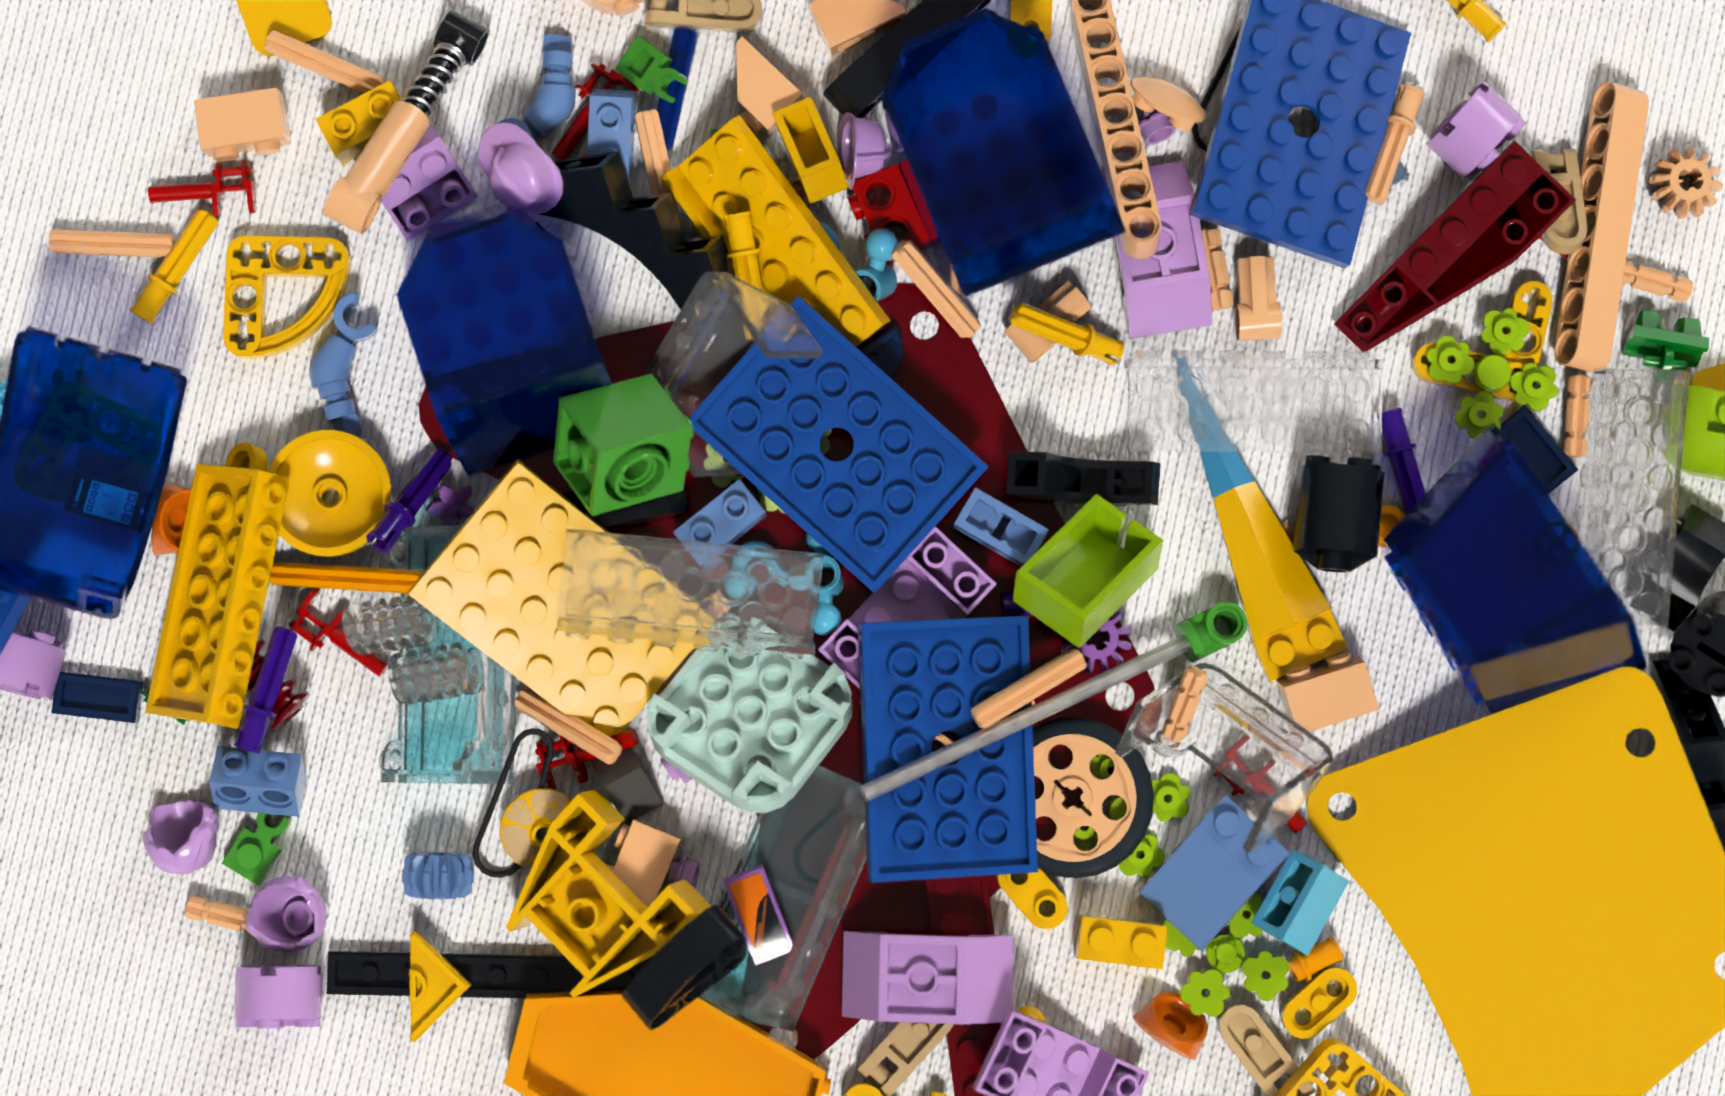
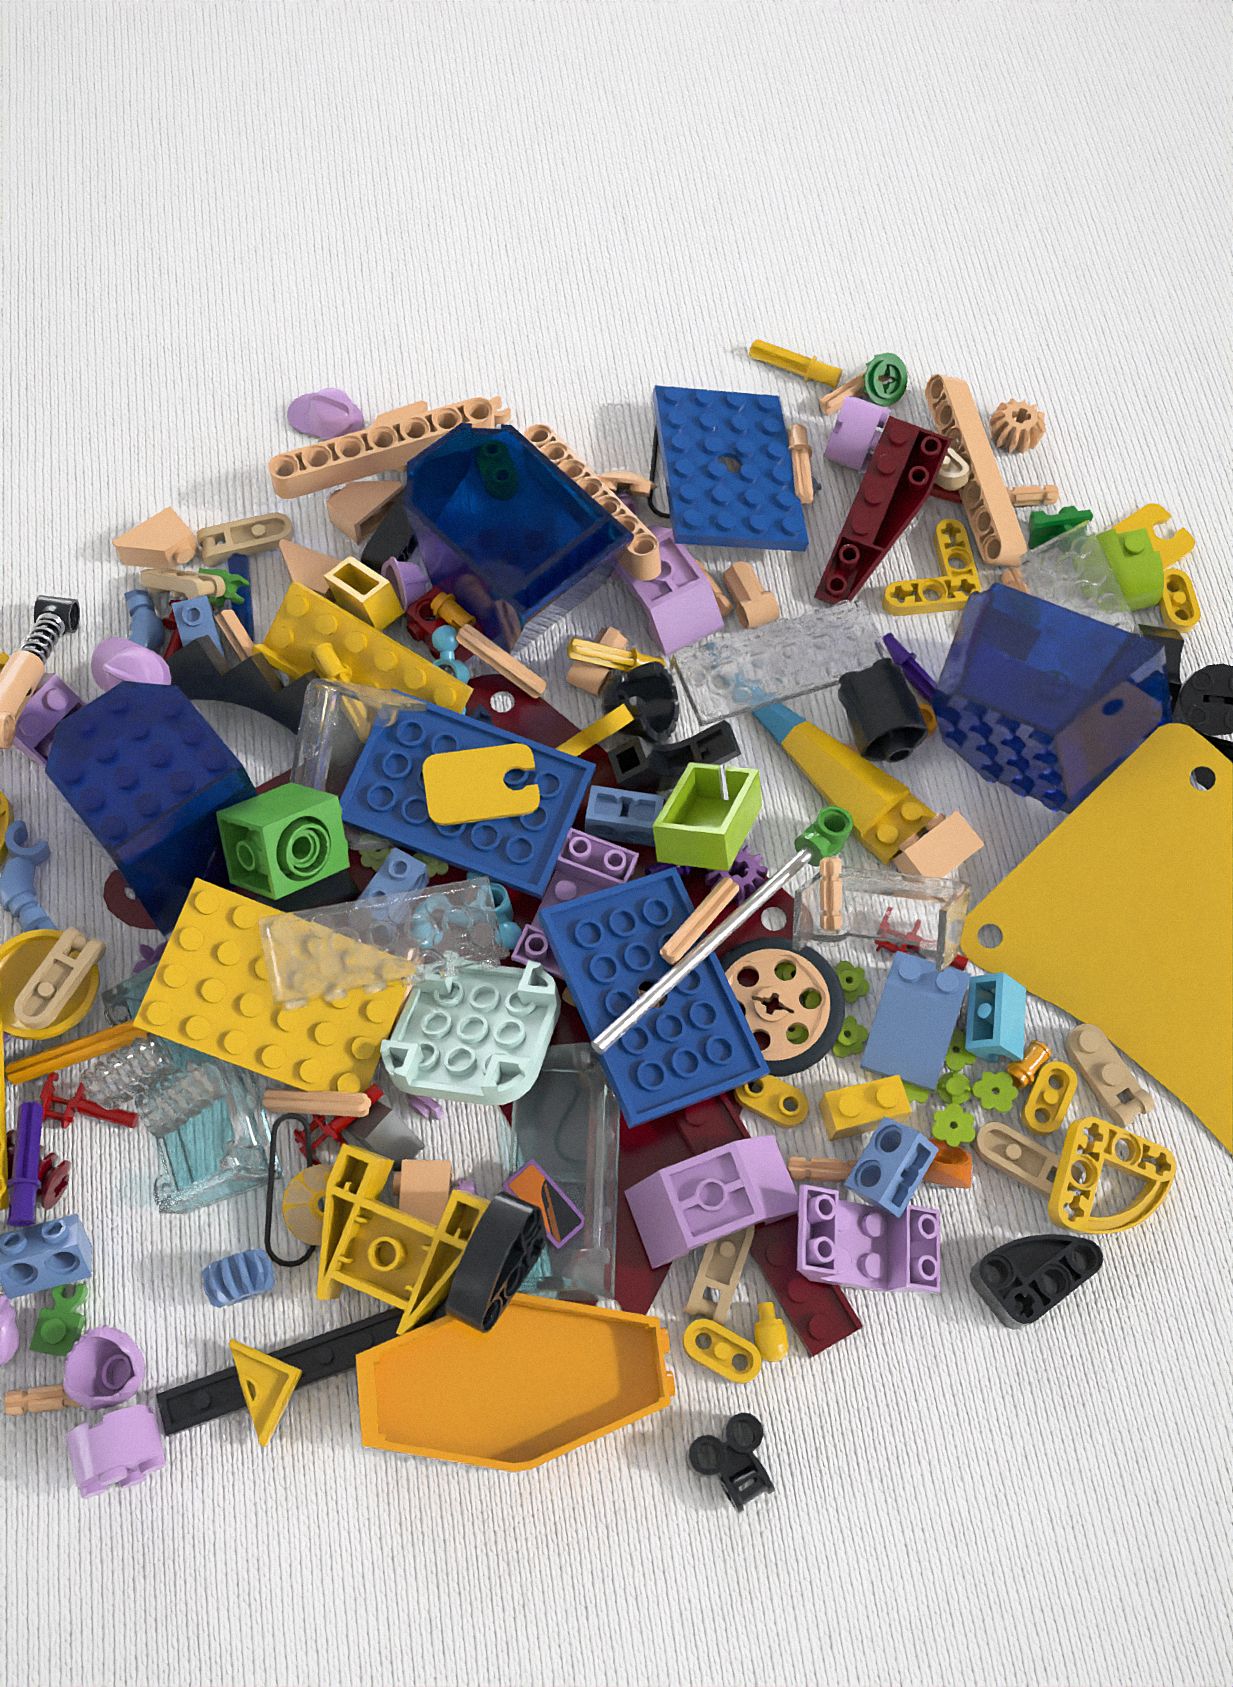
camera: 25 degrees left, 20 degrees down
(347, 501) = (57, 979): none -> tan plate
(401, 512) = (111, 971): dark purple axle -> none
(611, 53) = (182, 583): none -> tan plate
(842, 444) = (471, 786): none -> yellow piece
(901, 214) = (446, 607): none -> light orange pin
(1009, 415) = (597, 731): none -> yellow beam
(1056, 985) = (819, 1169): none -> light nougat axle
(1074, 400) = (649, 699): none -> black hair
(1125, 1014) = (891, 1166): none -> medium blue brick
(1392, 999) = (1107, 1074): none -> tan plate
(1492, 372) = (946, 584): lime plant -> none
(1518, 52) = (833, 401): none -> light nougat axle
(1554, 73) = (891, 367): none -> green gear

